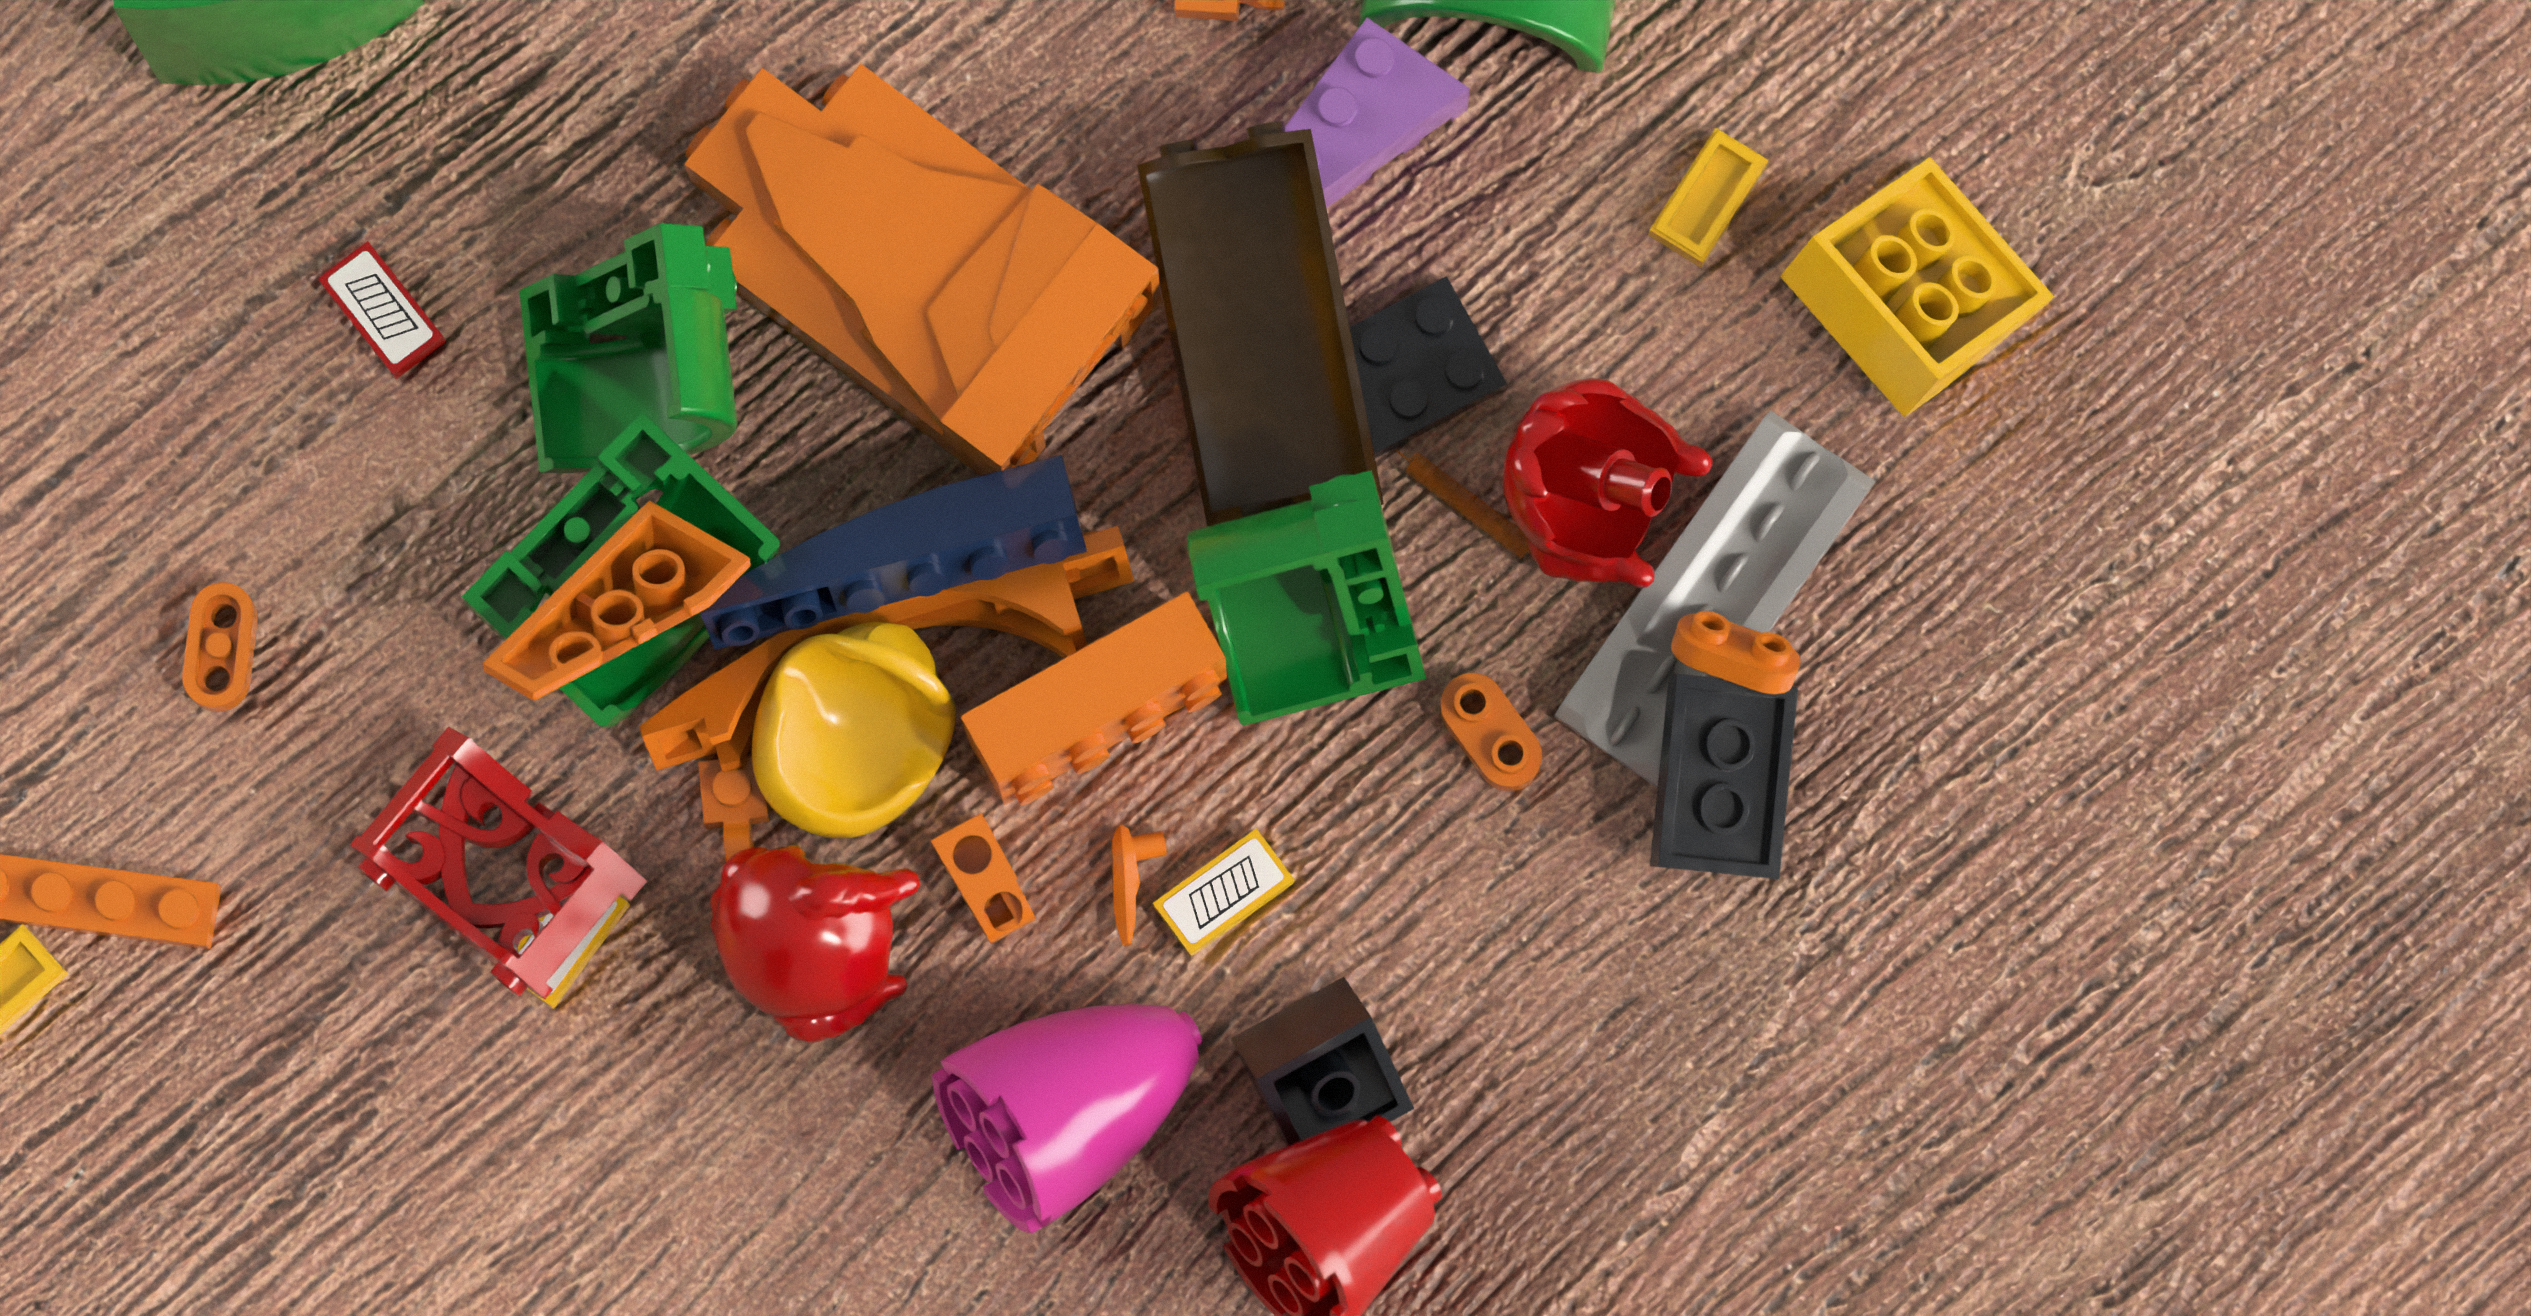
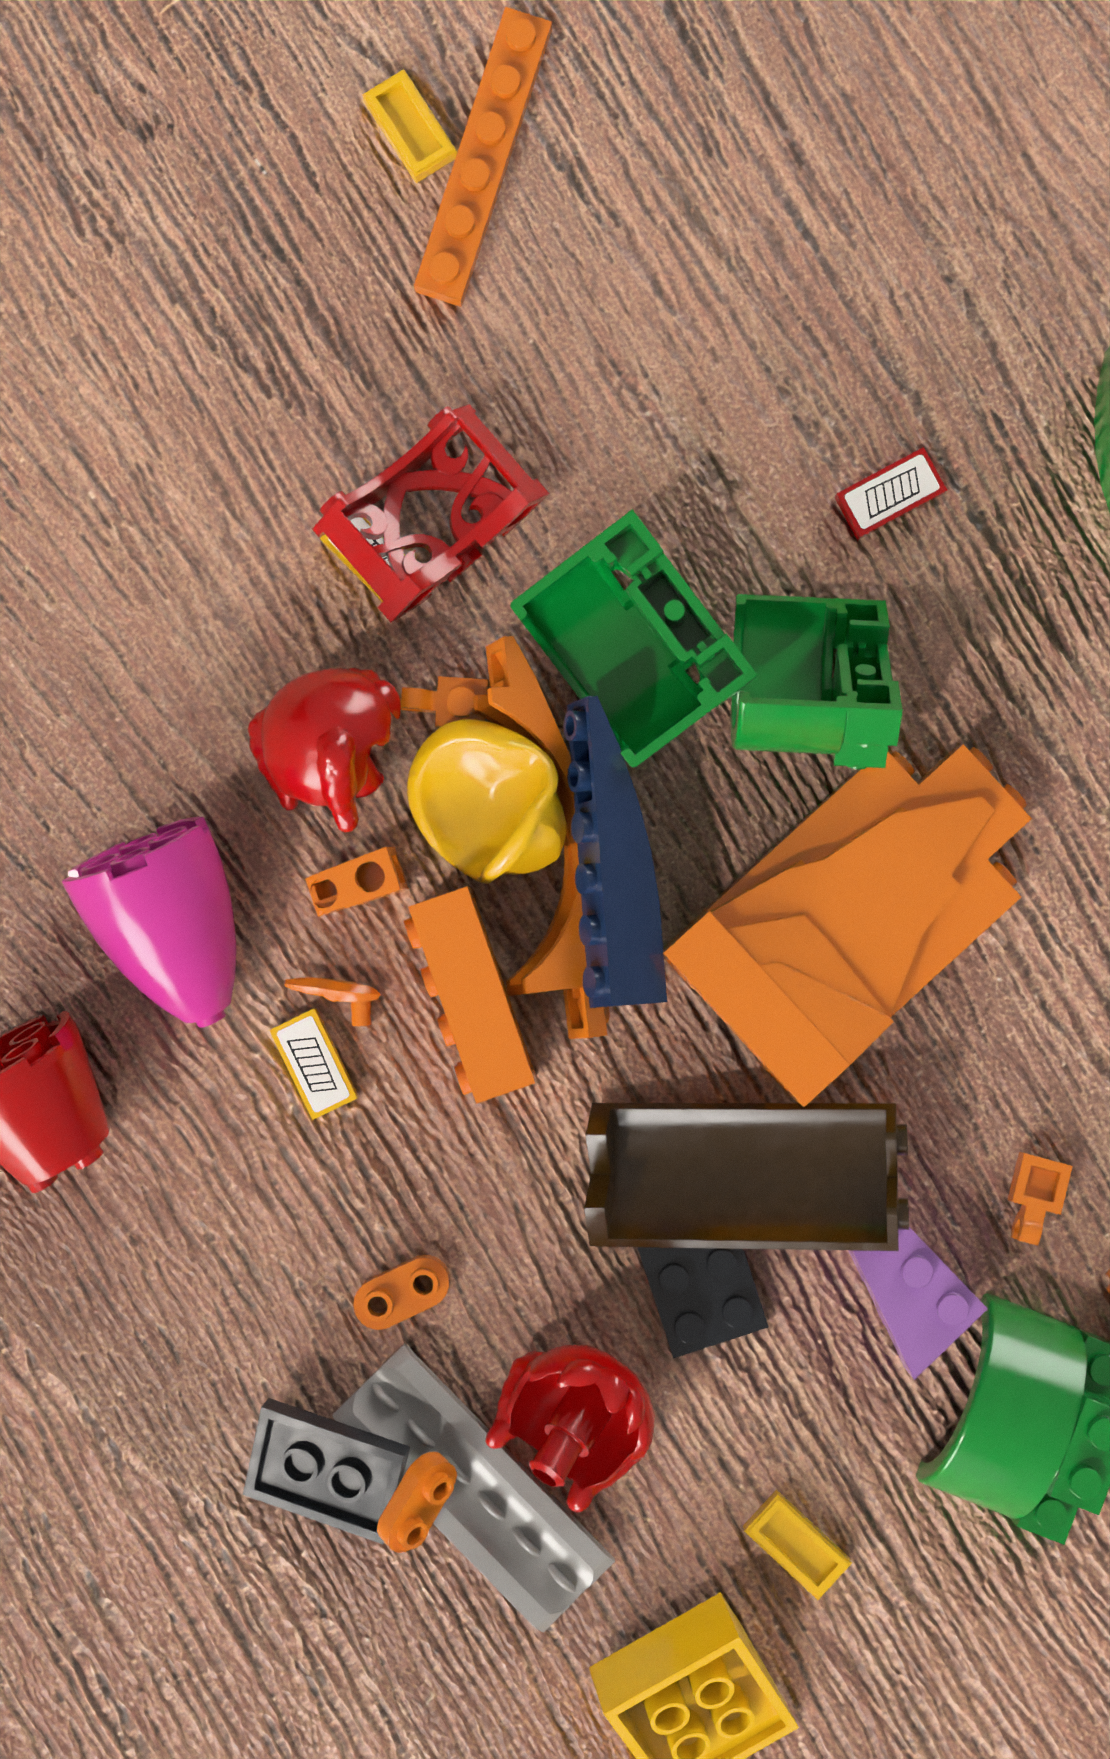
camera: 100 degrees right, 10 degrees up
(219, 649) = (645, 325): orange plate -> none
(623, 595) = (607, 636): orange wedge -> none
(1307, 601) = (526, 1152): green piece -> none
(1321, 1065) = (160, 1115): black slope -> none
(1463, 505) = (556, 1335): orange piece -> none

